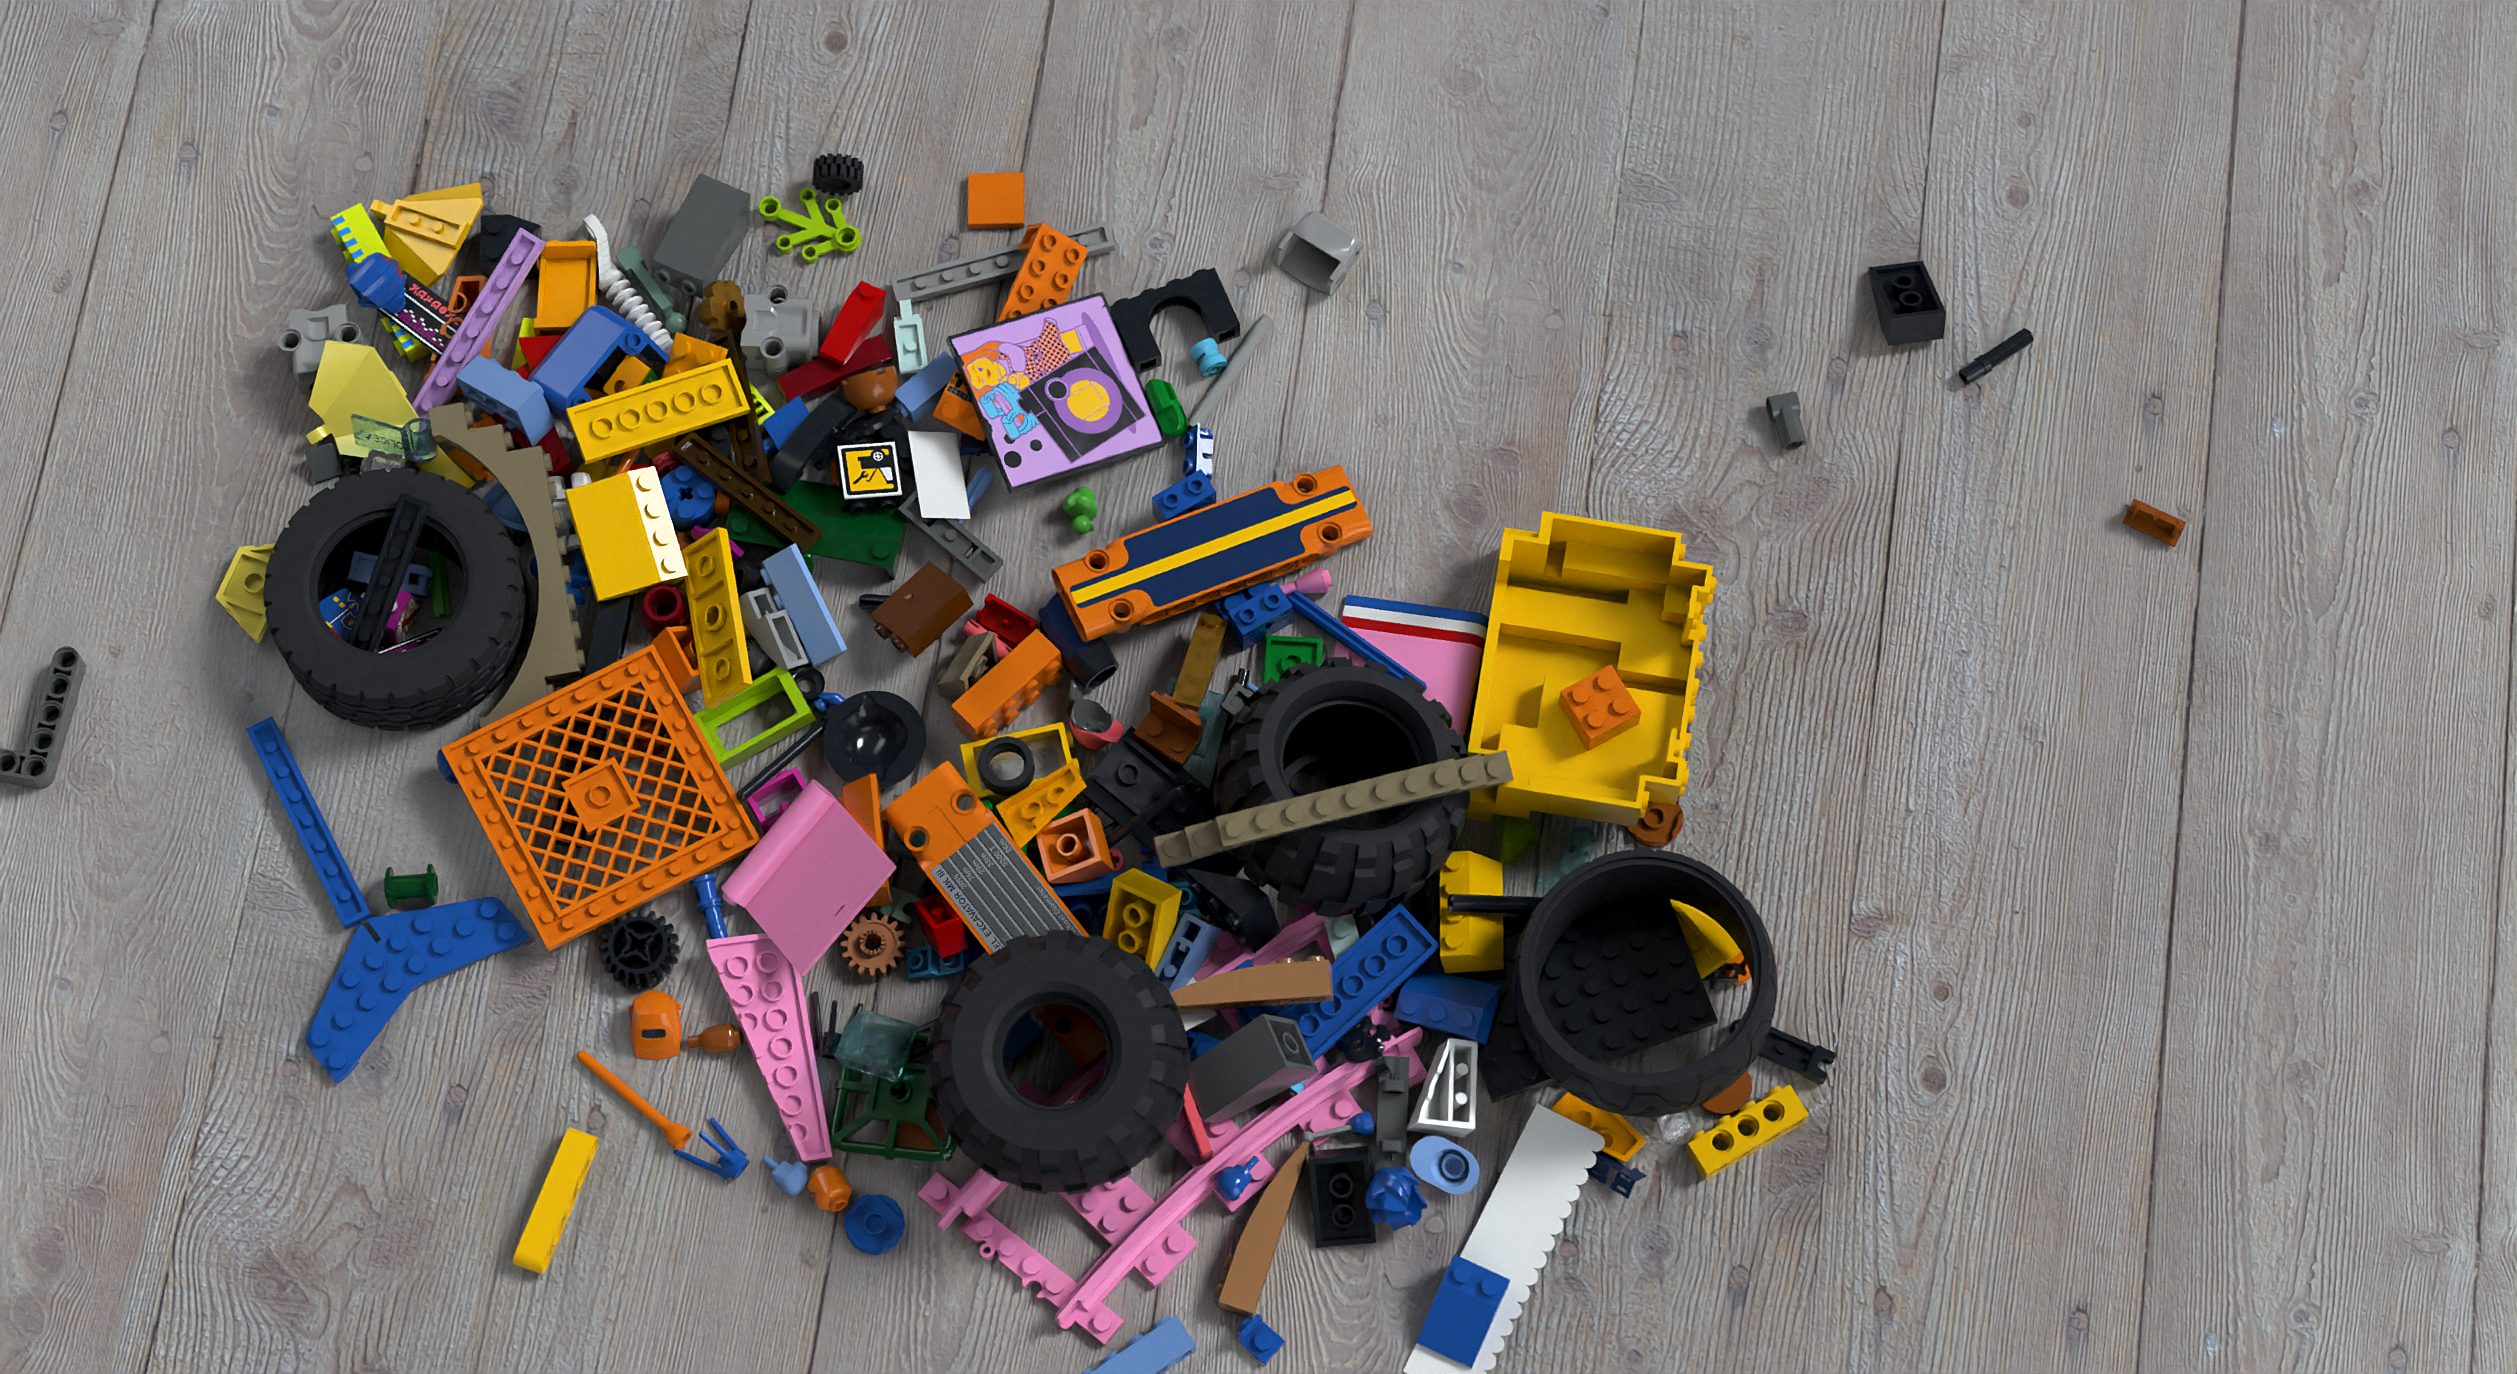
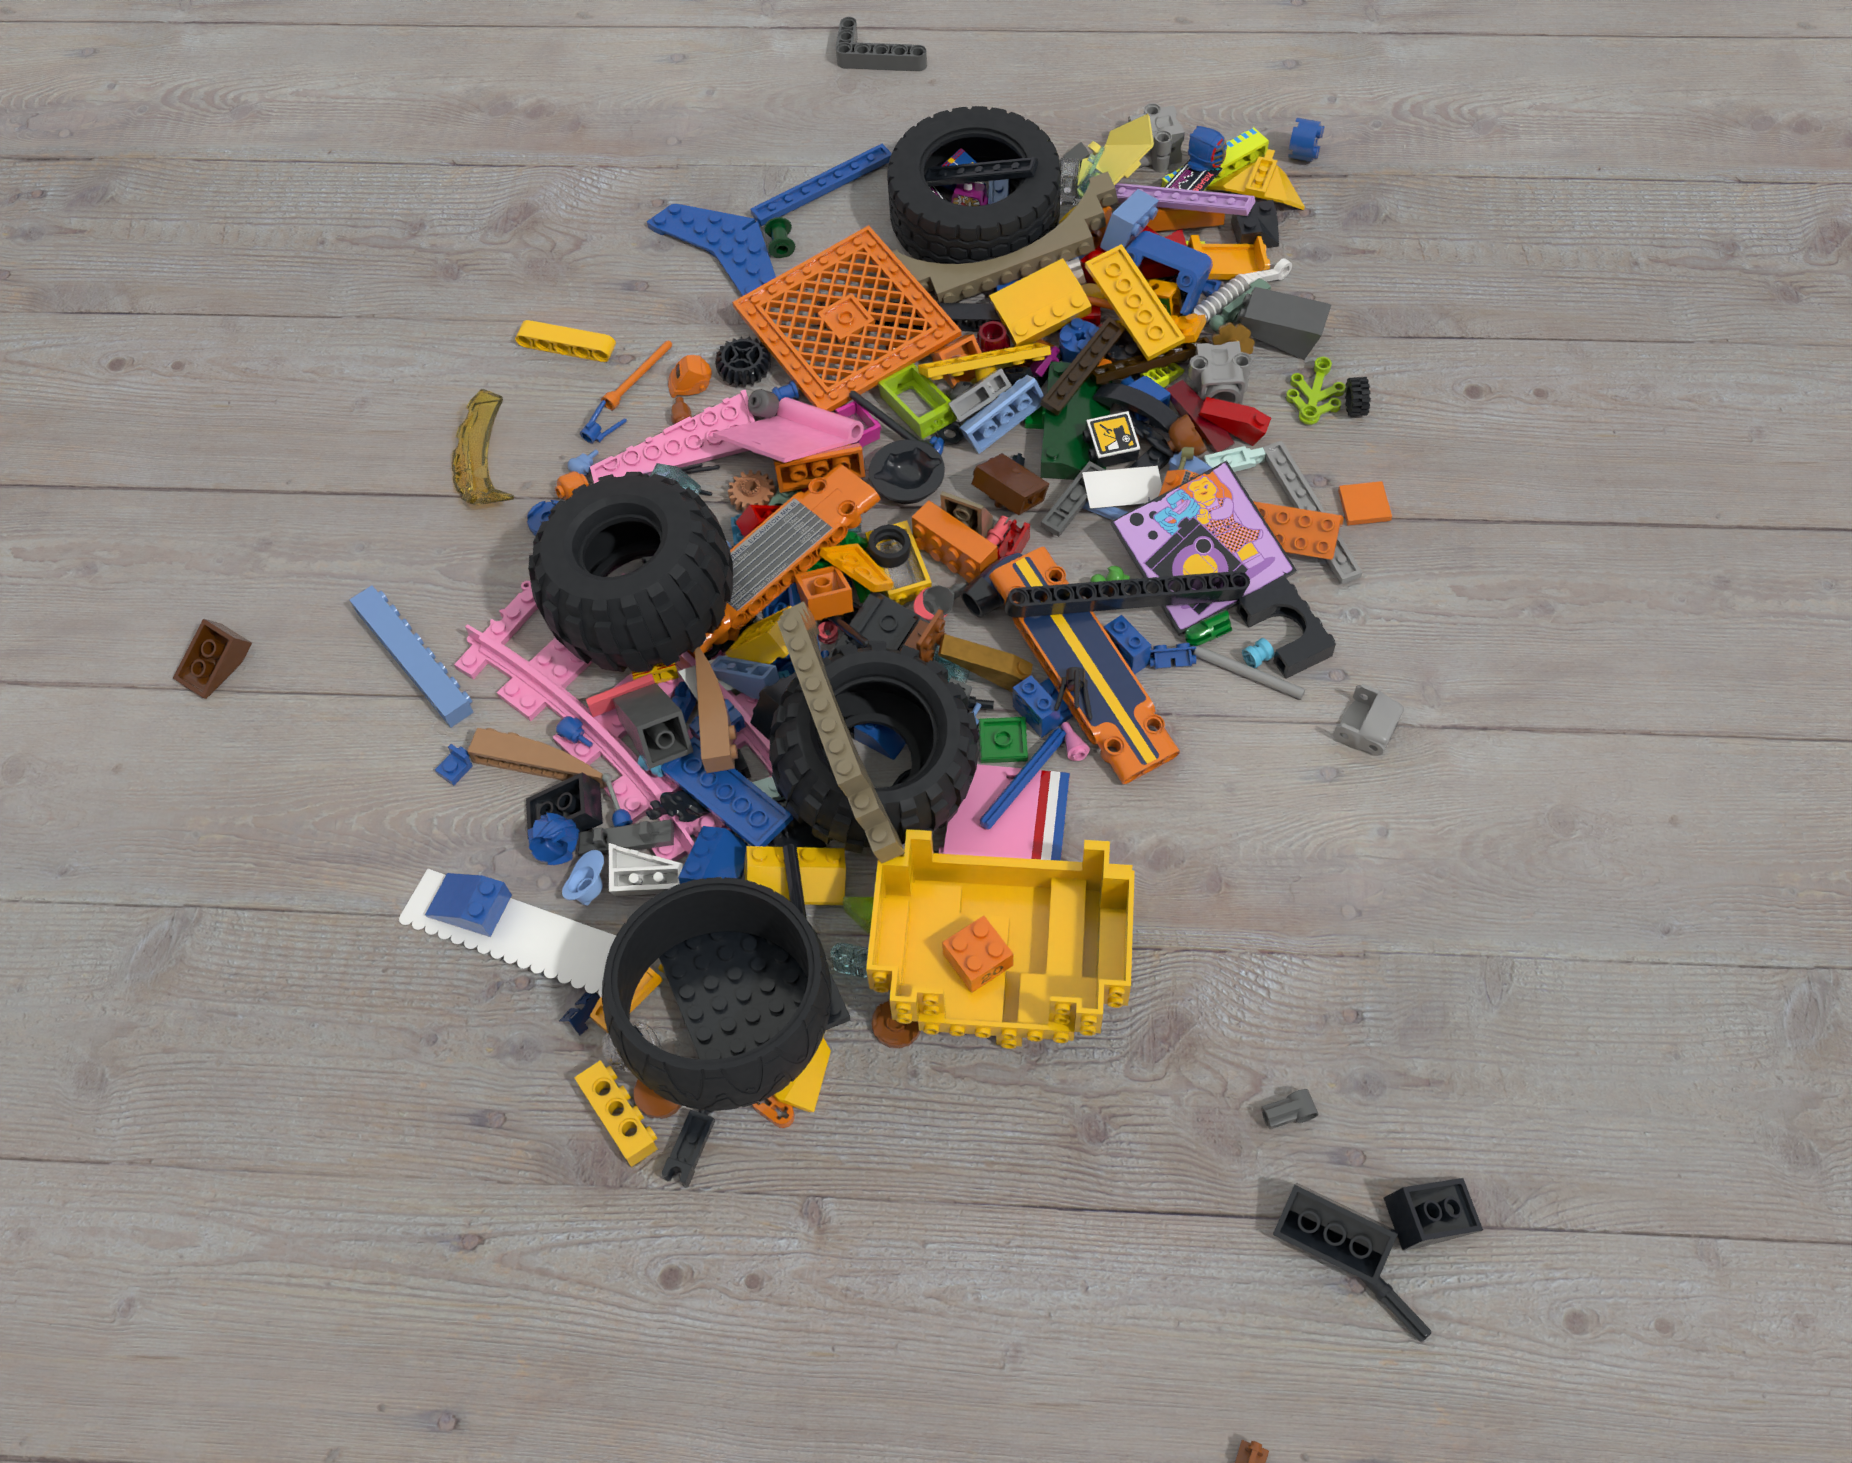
camera: 90 degrees right, 10 degrees down
(368, 155) = (1305, 139): none -> blue brick
(737, 916) = (763, 403): none -> dark grey head
(768, 1335) = (471, 455): none -> clear yellow windscreen
(909, 391) = (1187, 454): none -> olive hand
(1135, 492) = (1118, 599): none -> black beam
(1251, 558) = (1075, 681): none -> black plant
(1925, 395) = (1335, 1233): none -> black slope

